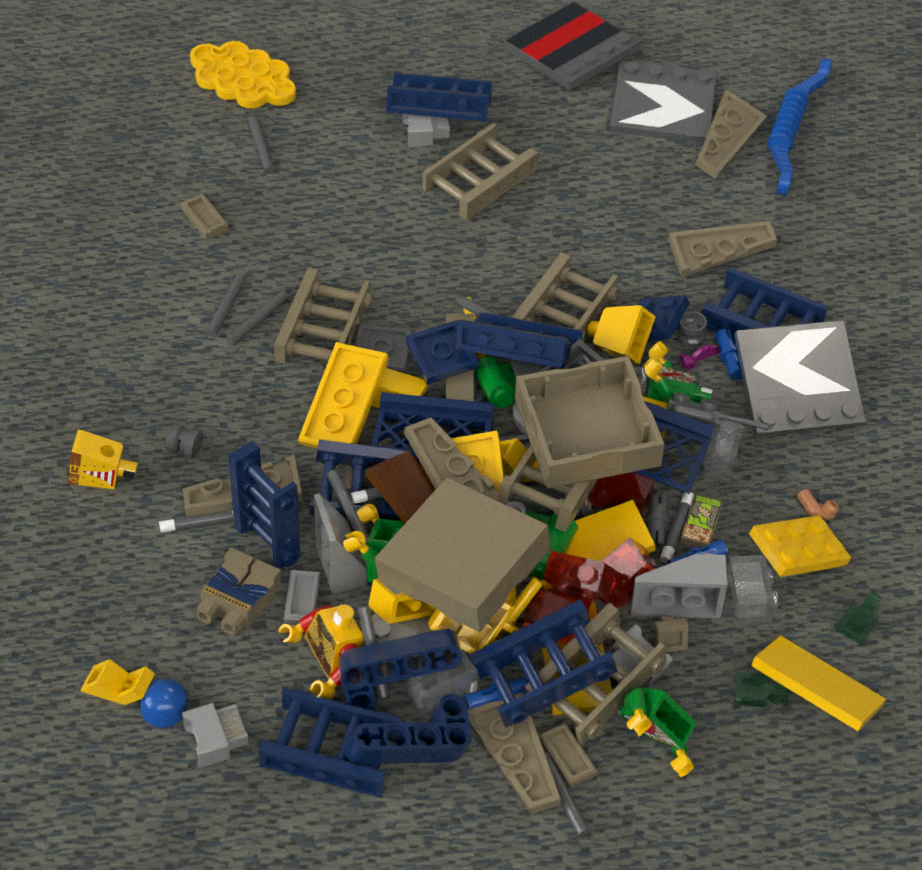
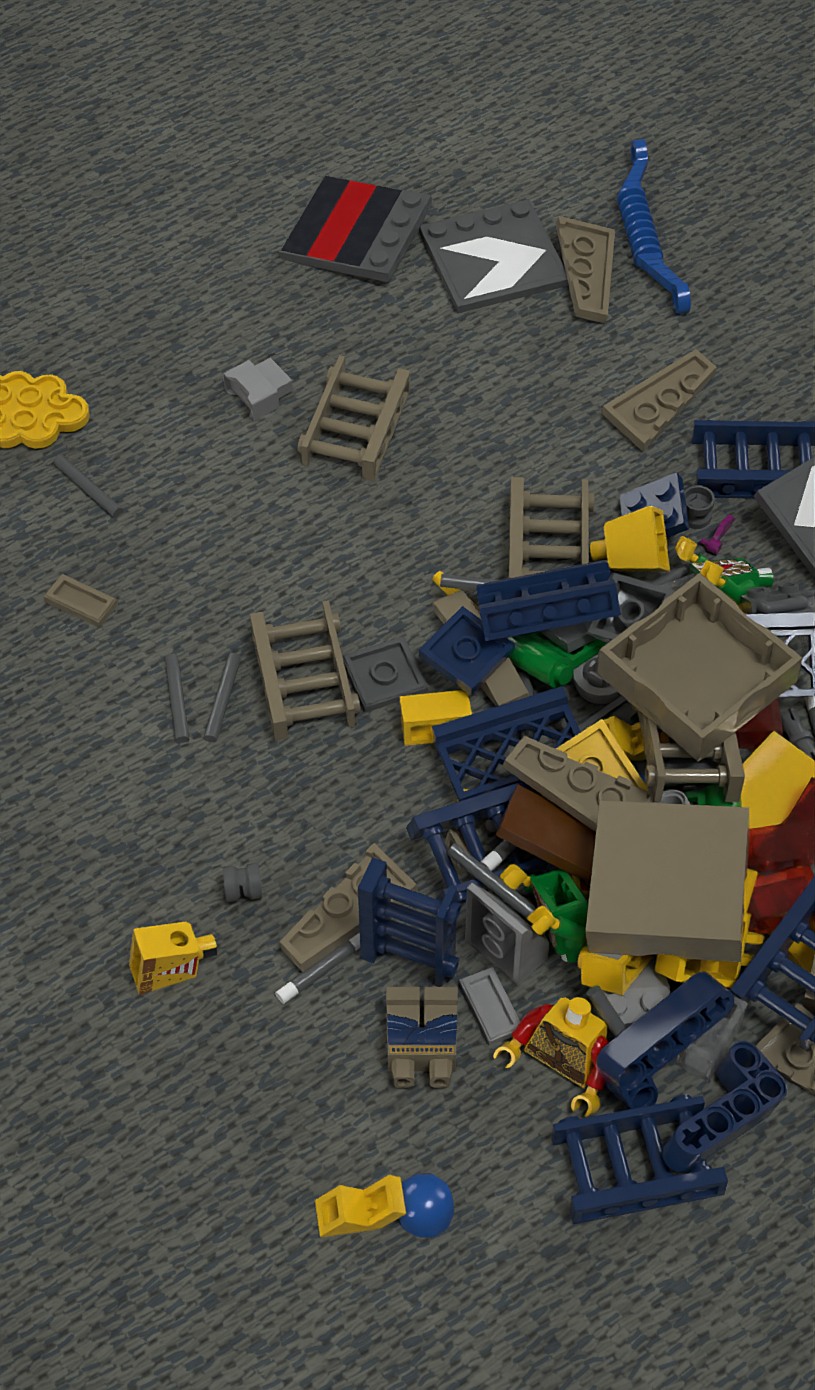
camera: 25 degrees left, 5 degrees up
(215, 732) = (505, 1211): light grey piece -> none
(344, 395) = (390, 752): yellow tile -> none
(439, 96) = (260, 347): dark blue fence -> none
(491, 694) = (766, 1018): blue pin -> none
(729, 353) = (750, 518): blue pin -> none

